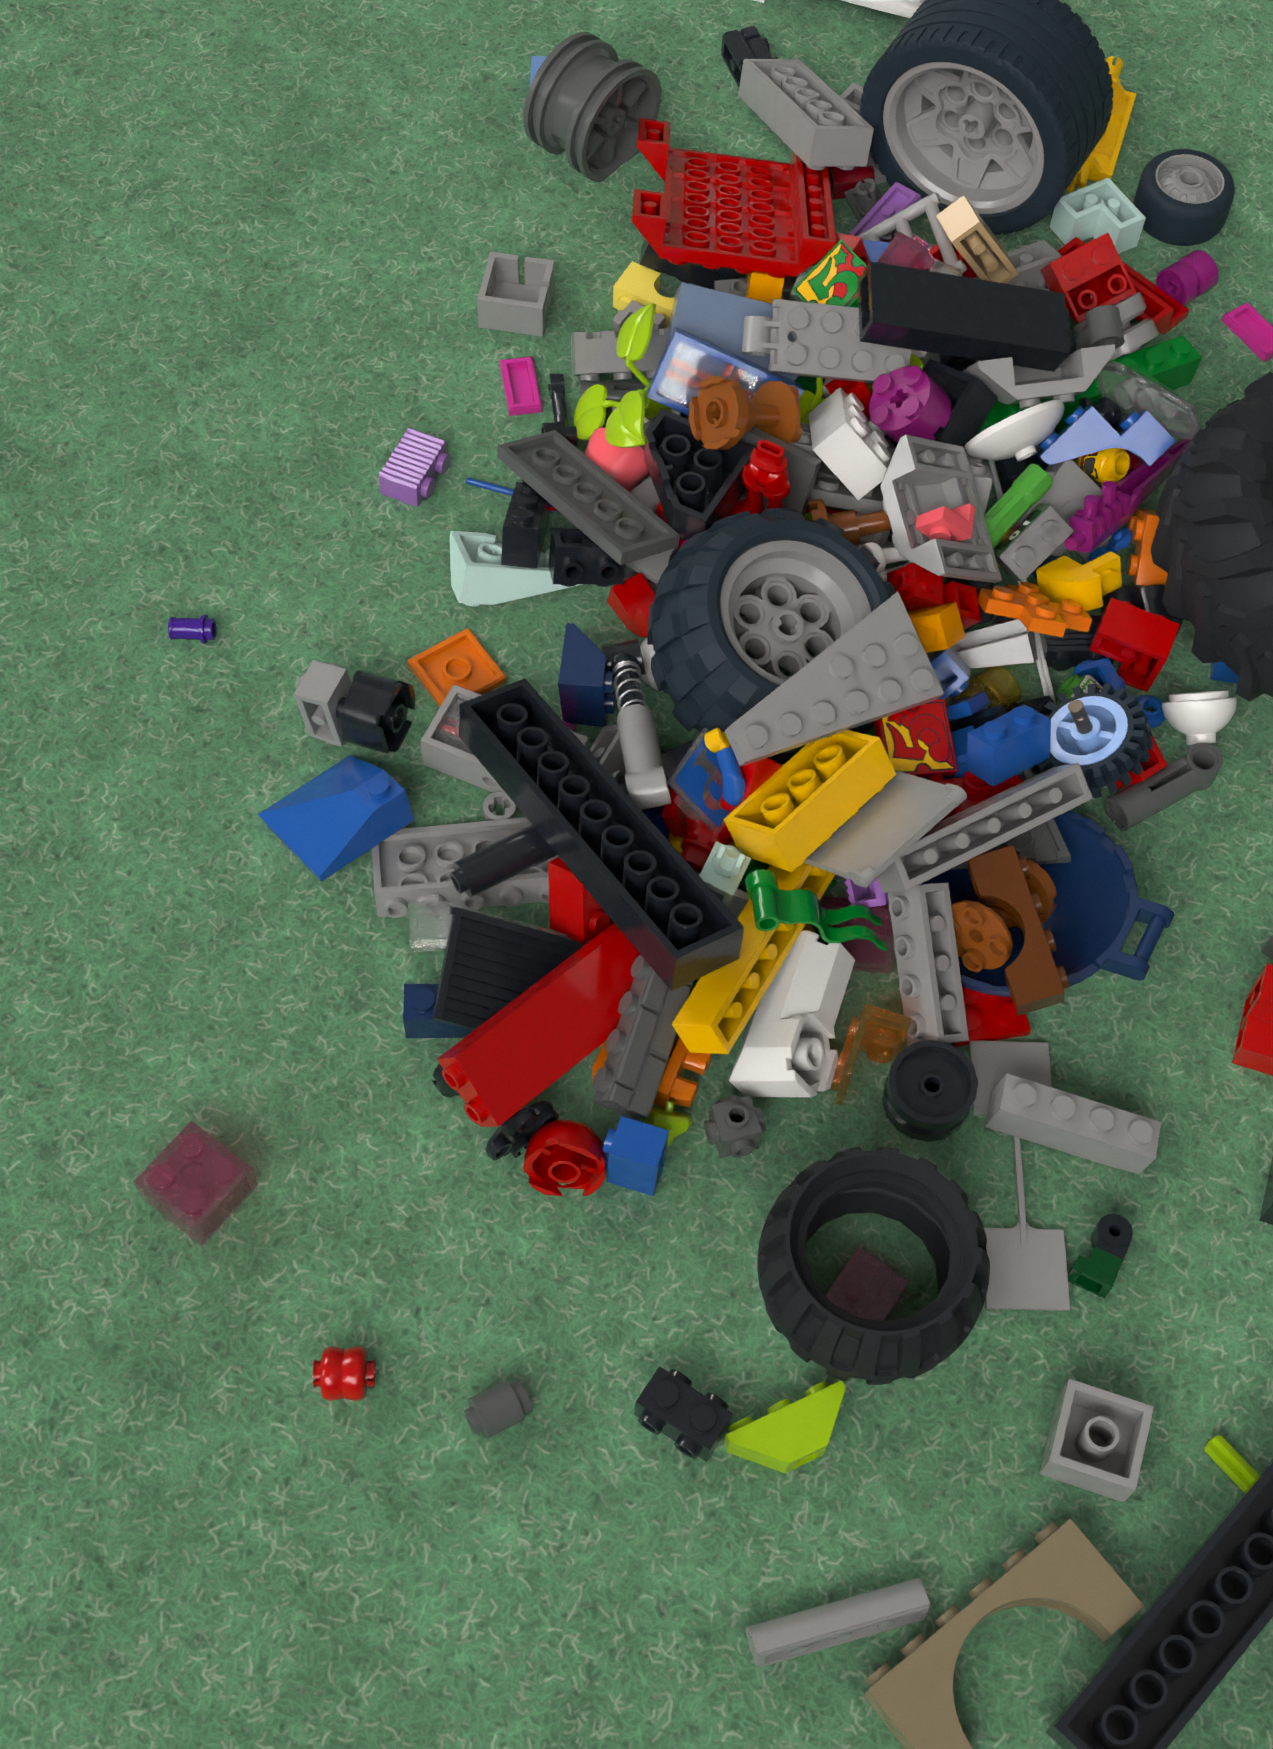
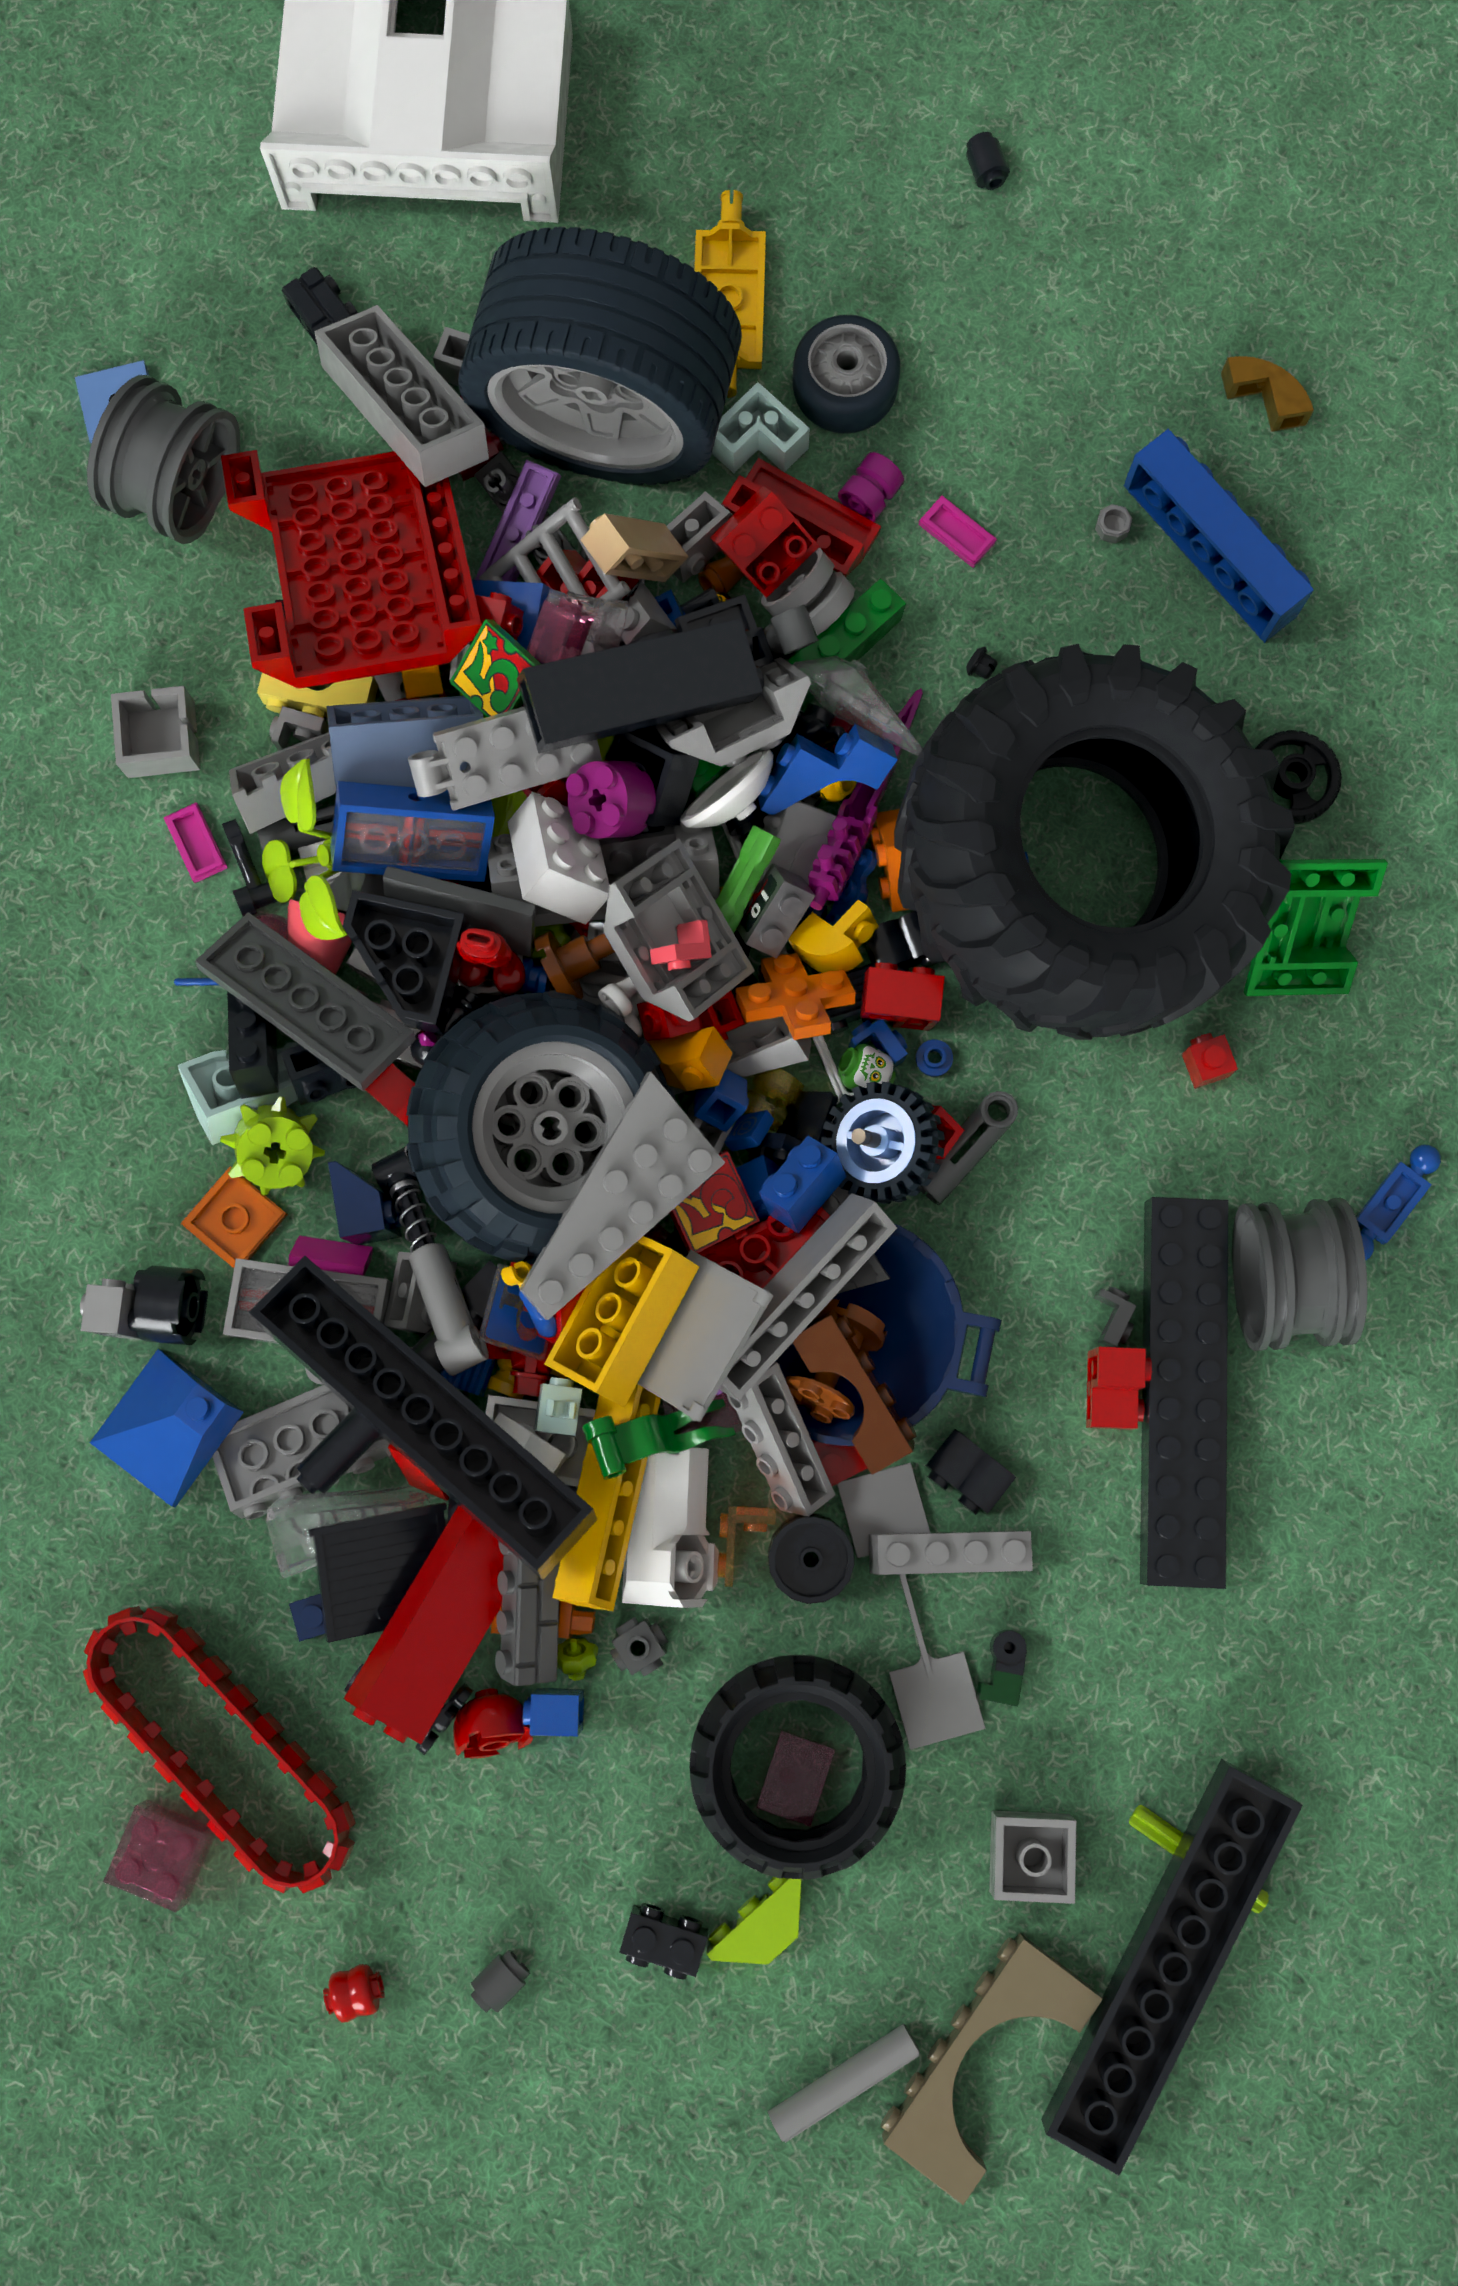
camera: 10 degrees left, 20 degrees up
(252, 961) = (173, 1764): none -> red piece
(413, 467) = (115, 987): medium lavender brick -> none
(495, 617) = (257, 1132): none -> lime brick
(725, 412) = (420, 895): dark orange piece -> none
(1107, 1064) = (969, 1472): none -> black brick
(1199, 714) = (984, 1051): white piece -> none

